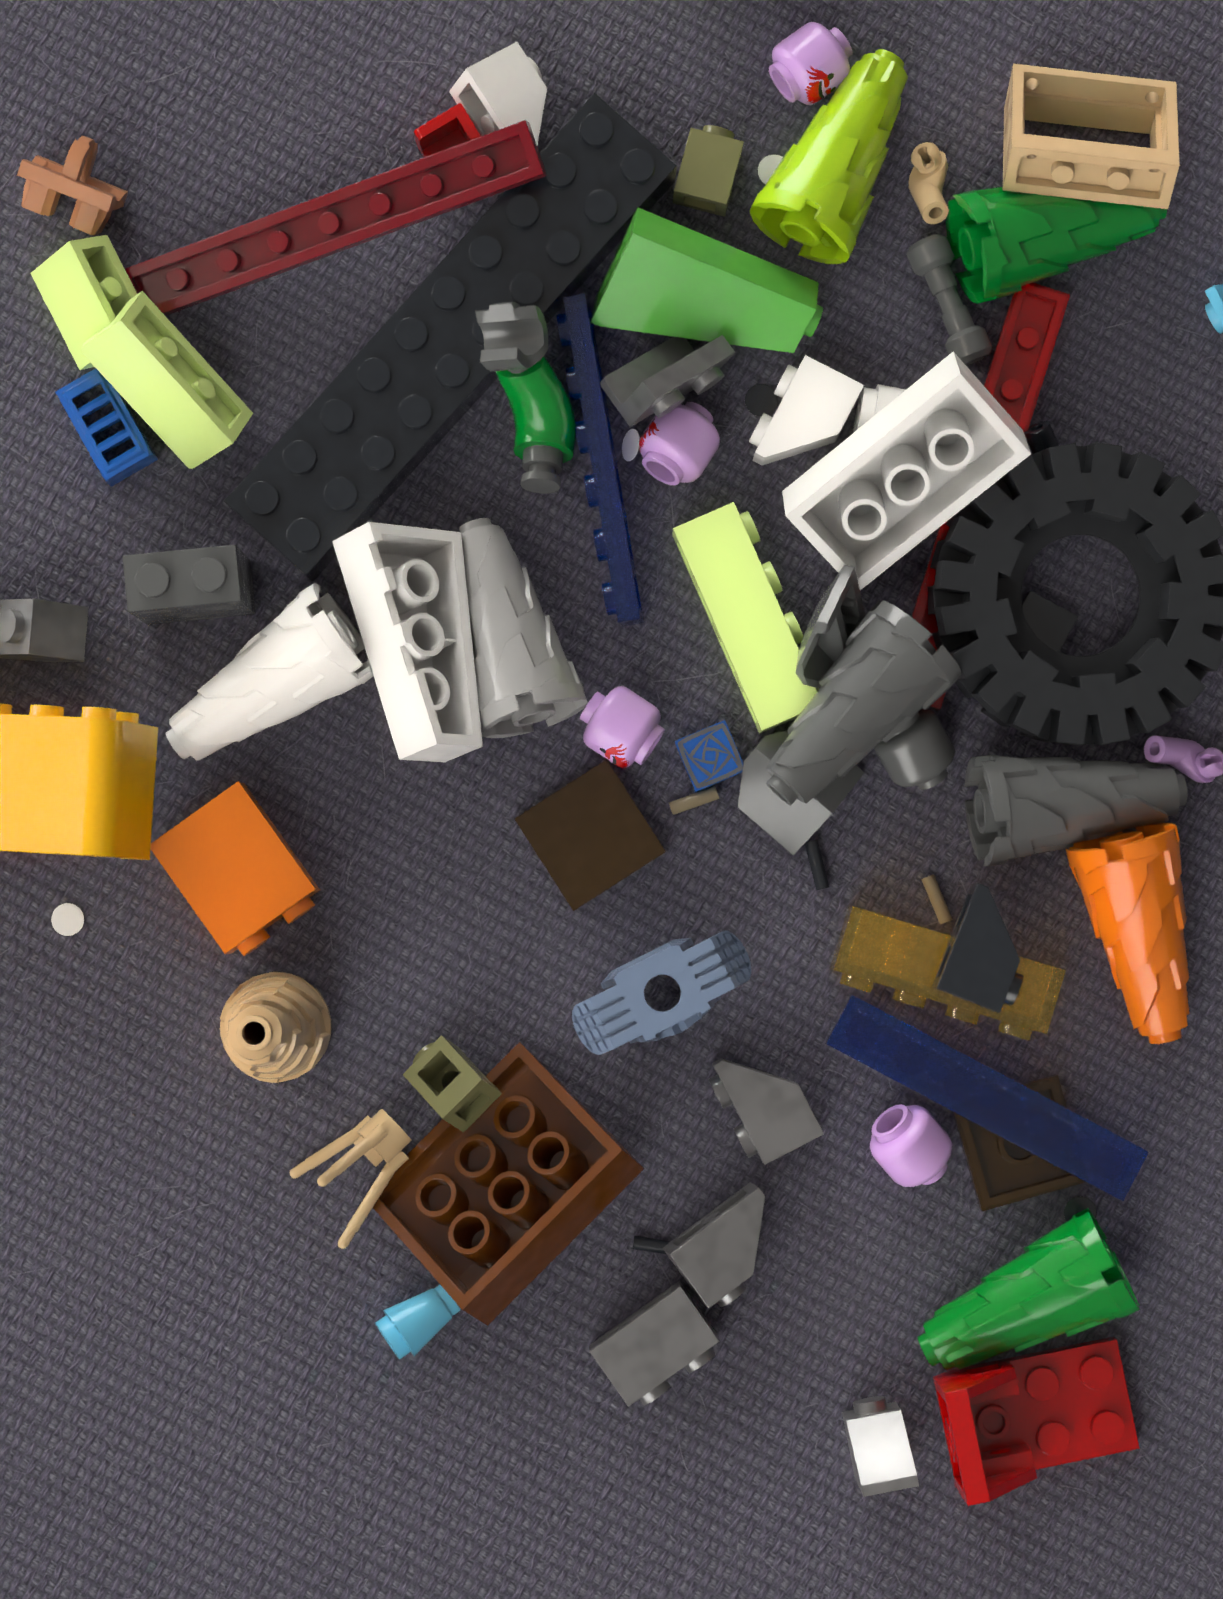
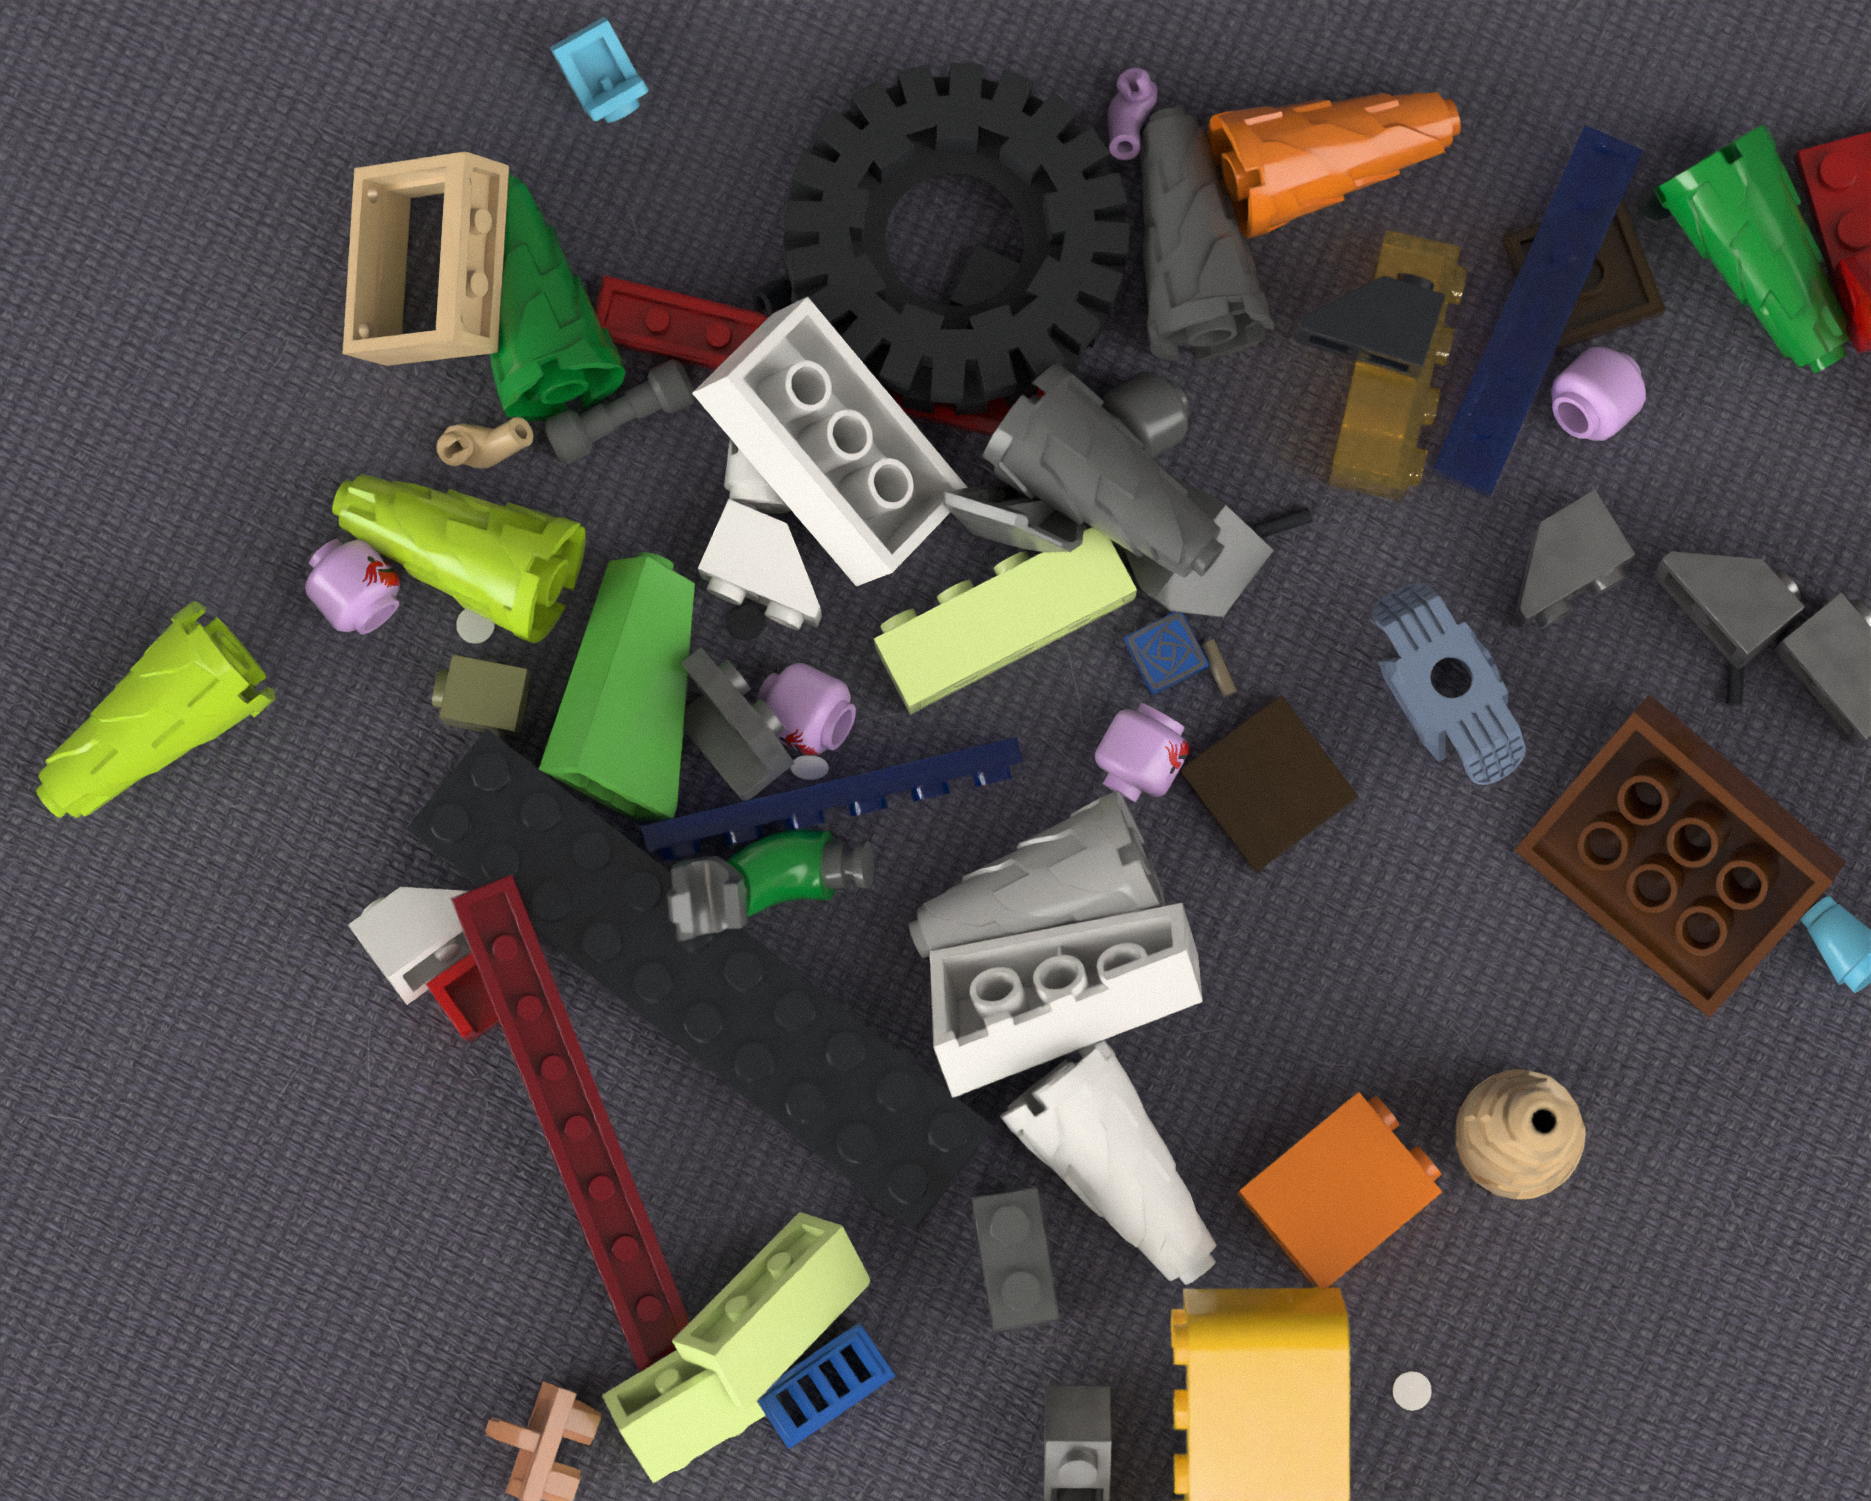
camera: 90 degrees left, 5 degrees down
(377, 1140) = (1643, 1002): tan plant -> none
(451, 1083) = (1587, 903): olive brick -> none
(936, 899) = (1311, 384): dark tan piece -> none

